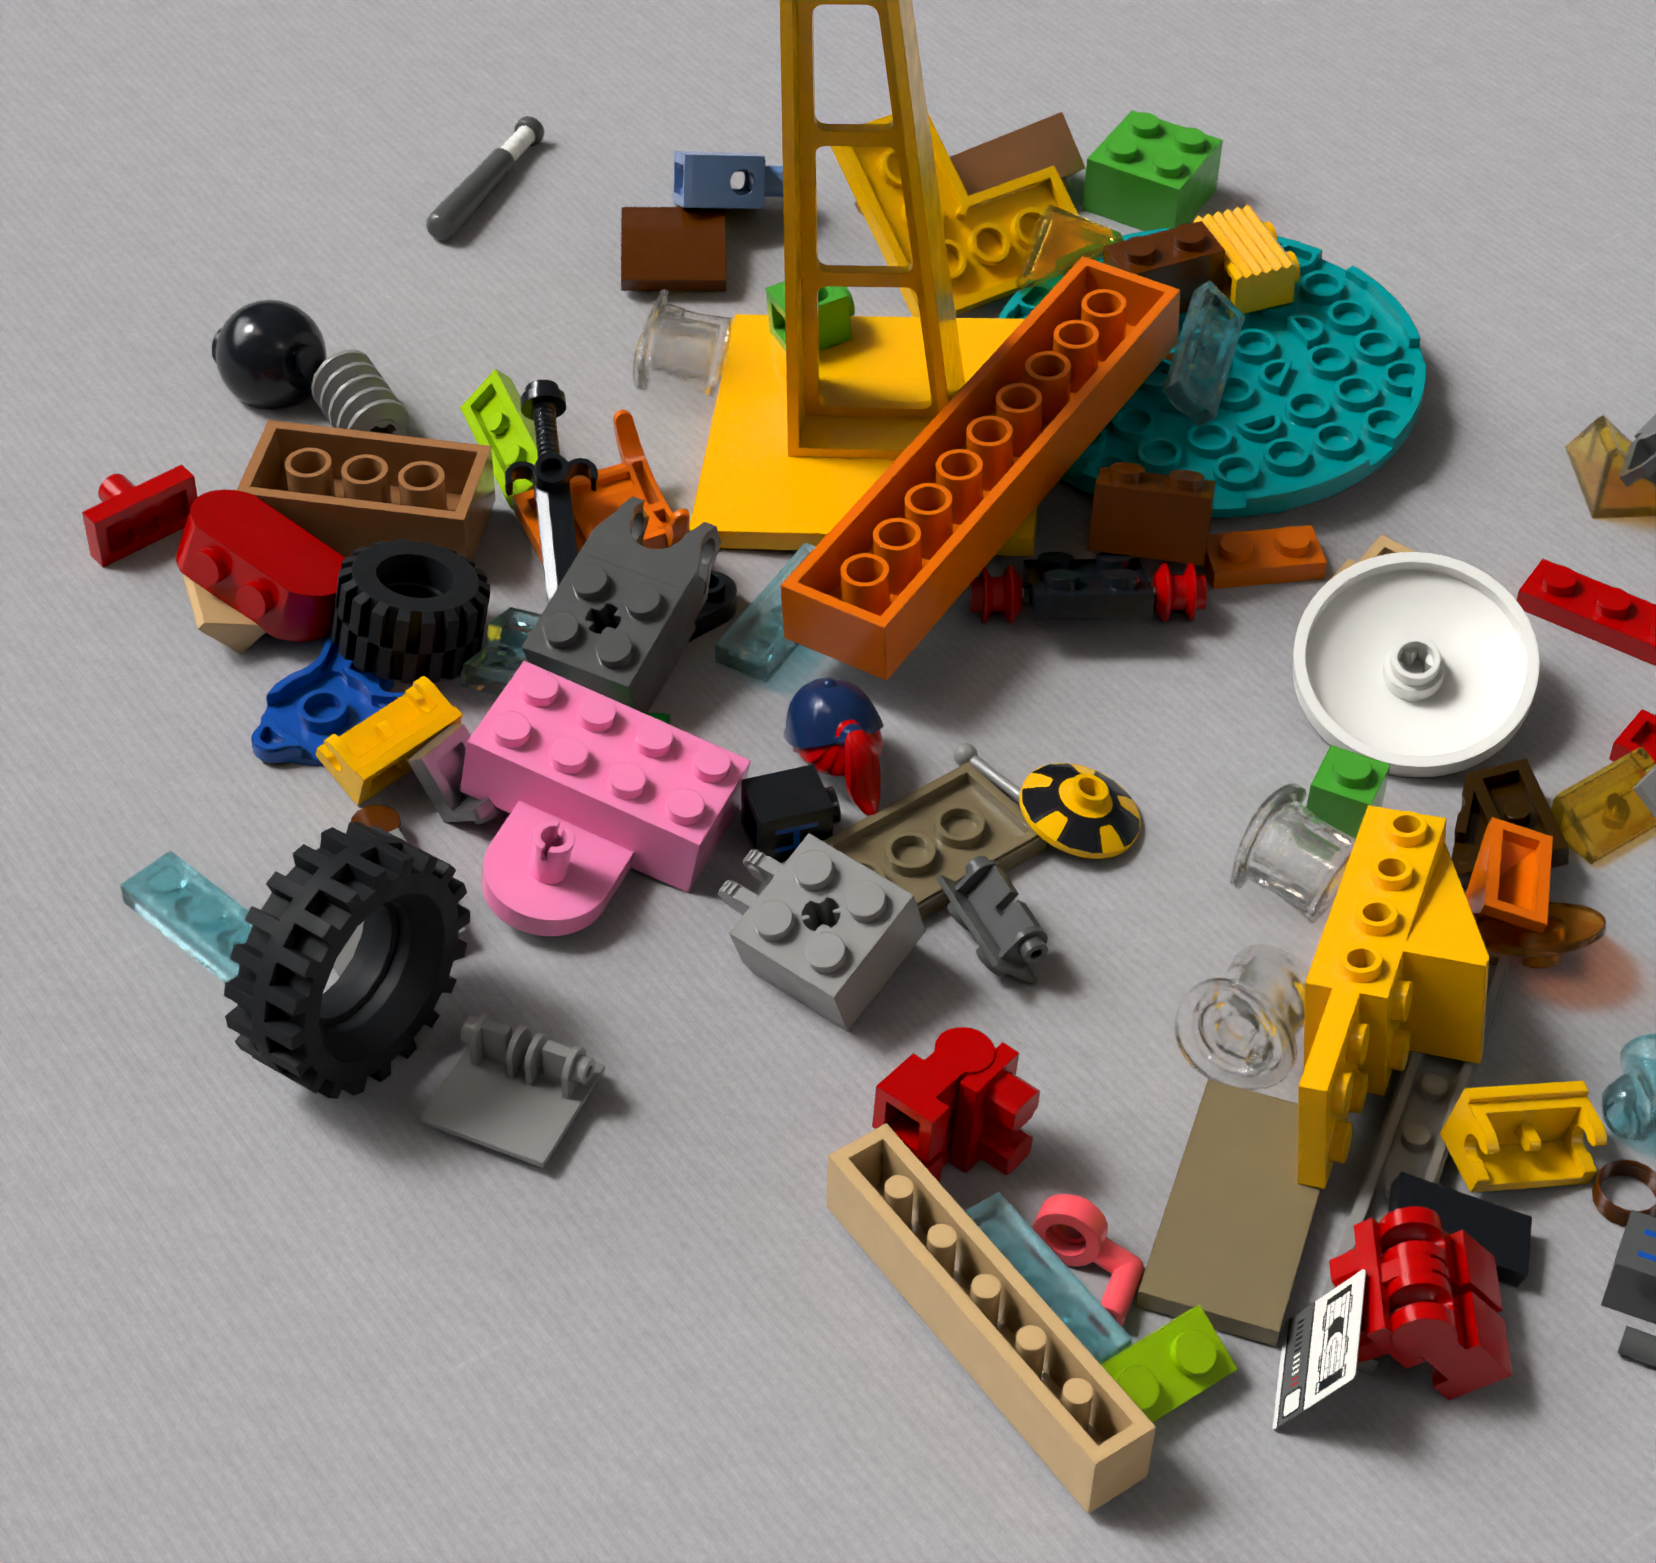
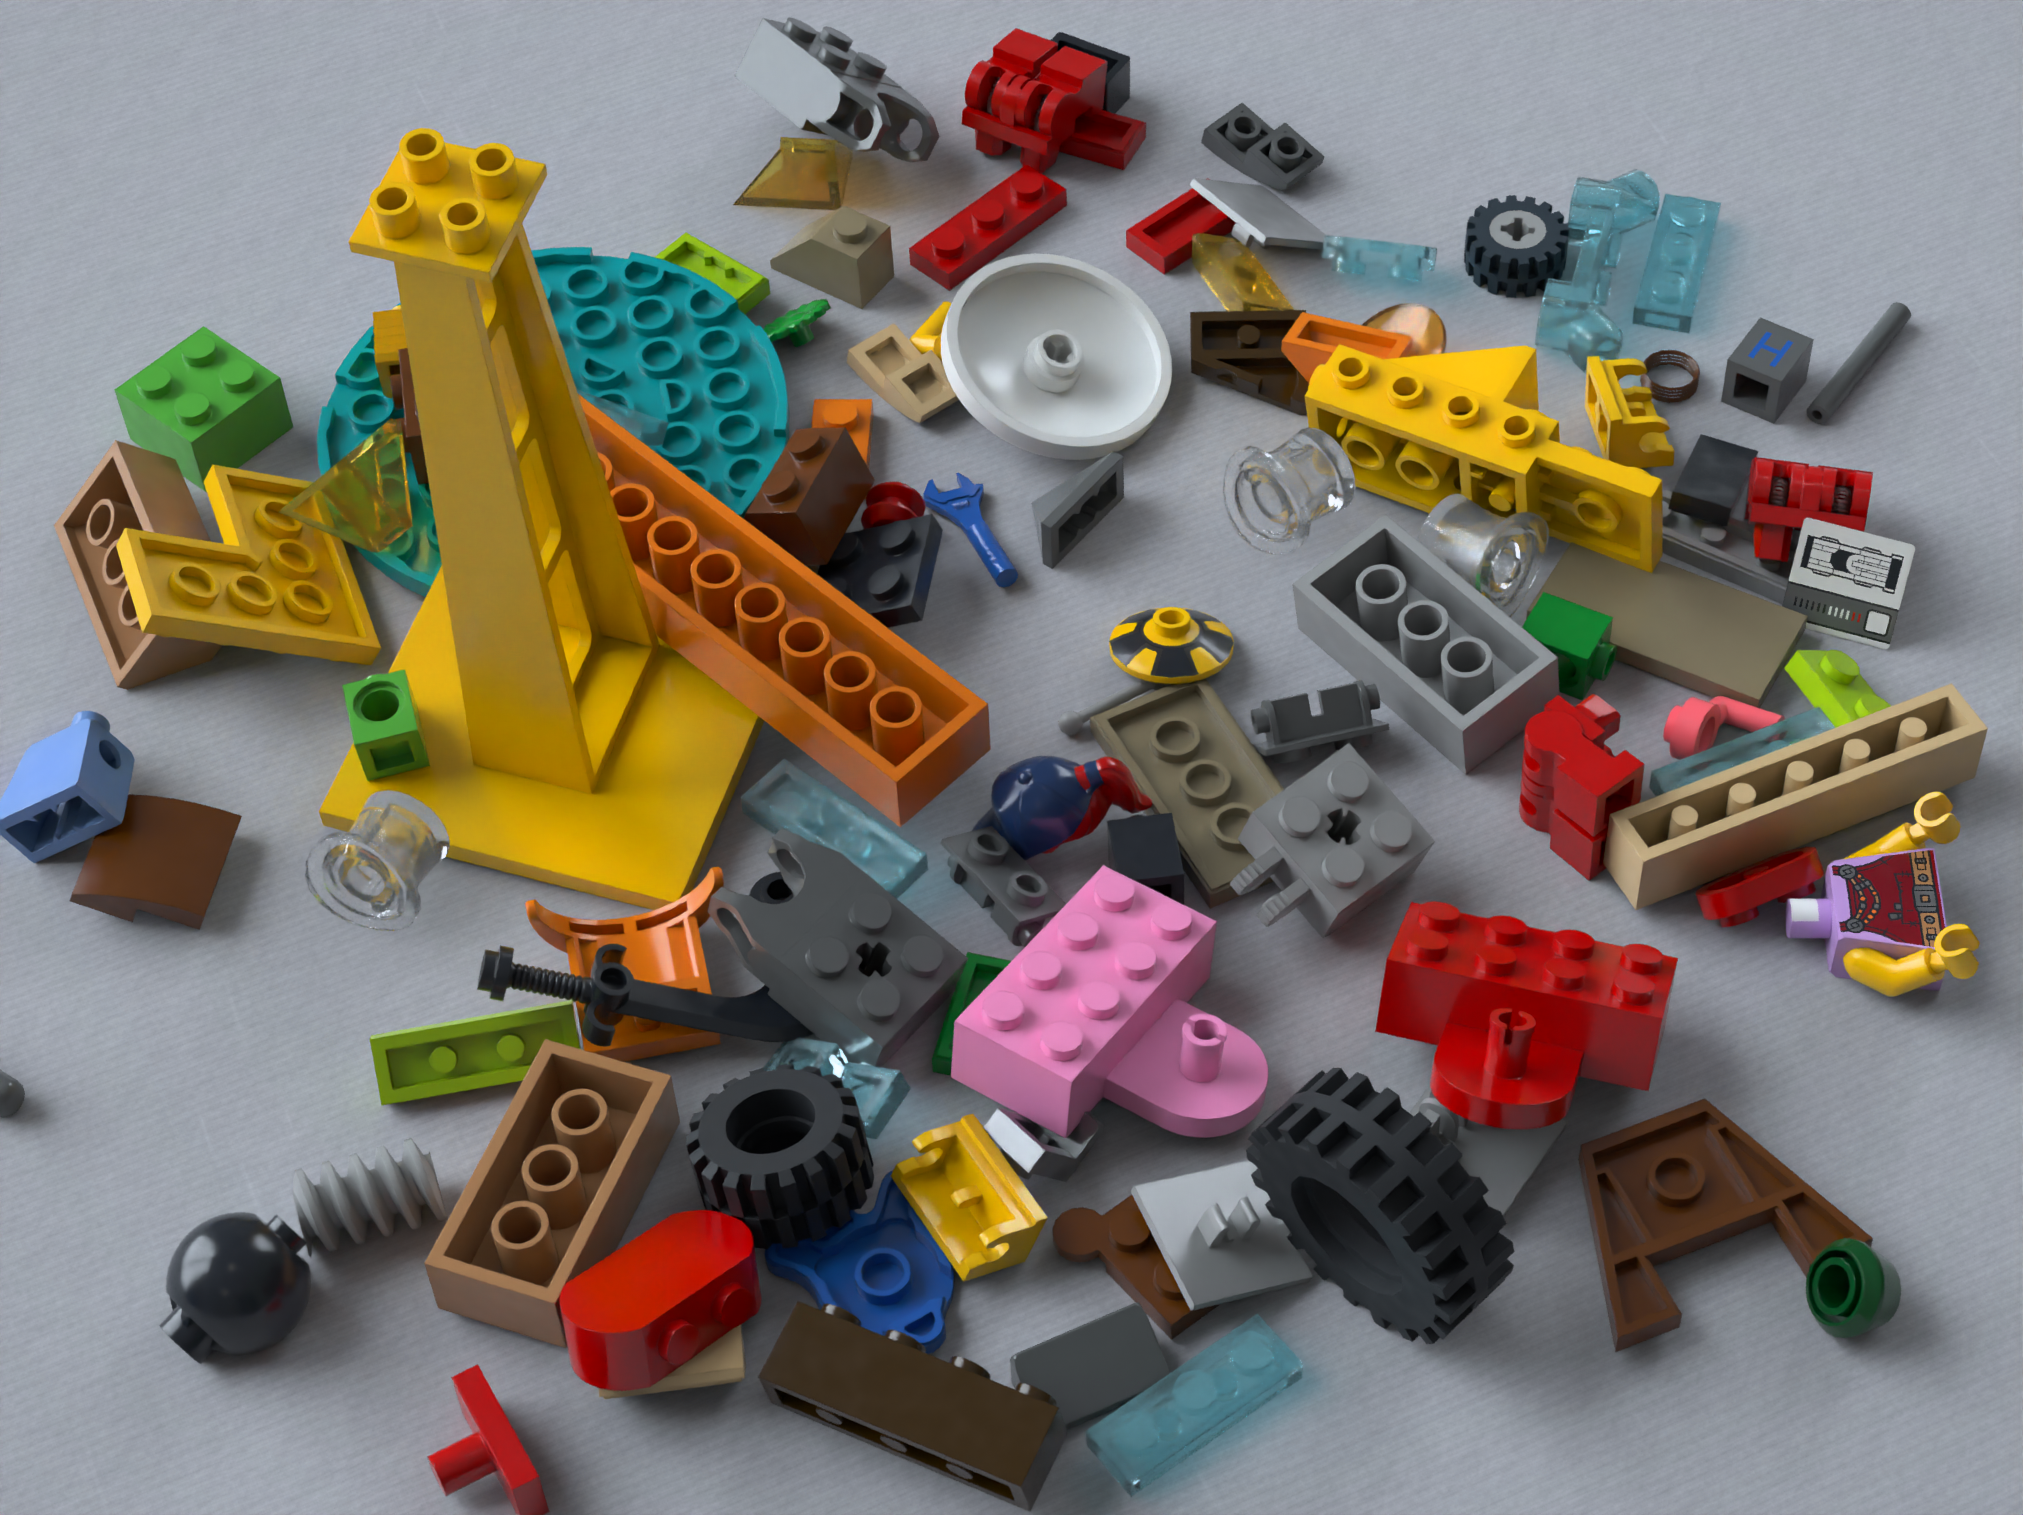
camera: 75 degrees left, 5 degrees up
(176, 733) = (915, 1403): none -> dark brown brick
(232, 846) = (1094, 1364): none -> dark grey slope
(351, 1402) = (1852, 1288): none -> dark green cone
(467, 1253) = (1681, 1188): none -> reddish brown wing
(634, 1090) = (1522, 1011): none -> red brick
(746, 711) = (997, 873): none -> dark grey hinge
(847, 1413) = (1887, 910): none -> torso
(855, 1286) = (1781, 877): none -> red plate
(1111, 985) = (1426, 642): none -> light grey brick
(1159, 1108) = (1578, 640): none -> green brick
(1216, 648) = (963, 509): none -> blue piece
(1228, 719) = (1077, 507): none -> dark grey slope
(1346, 787) = (1206, 441): bright green brick -> none
(1404, 499) = (796, 323): none -> green piece
(1442, 435) = (735, 278): none -> lime plate
(1503, 515) = (840, 256): none -> dark tan slope

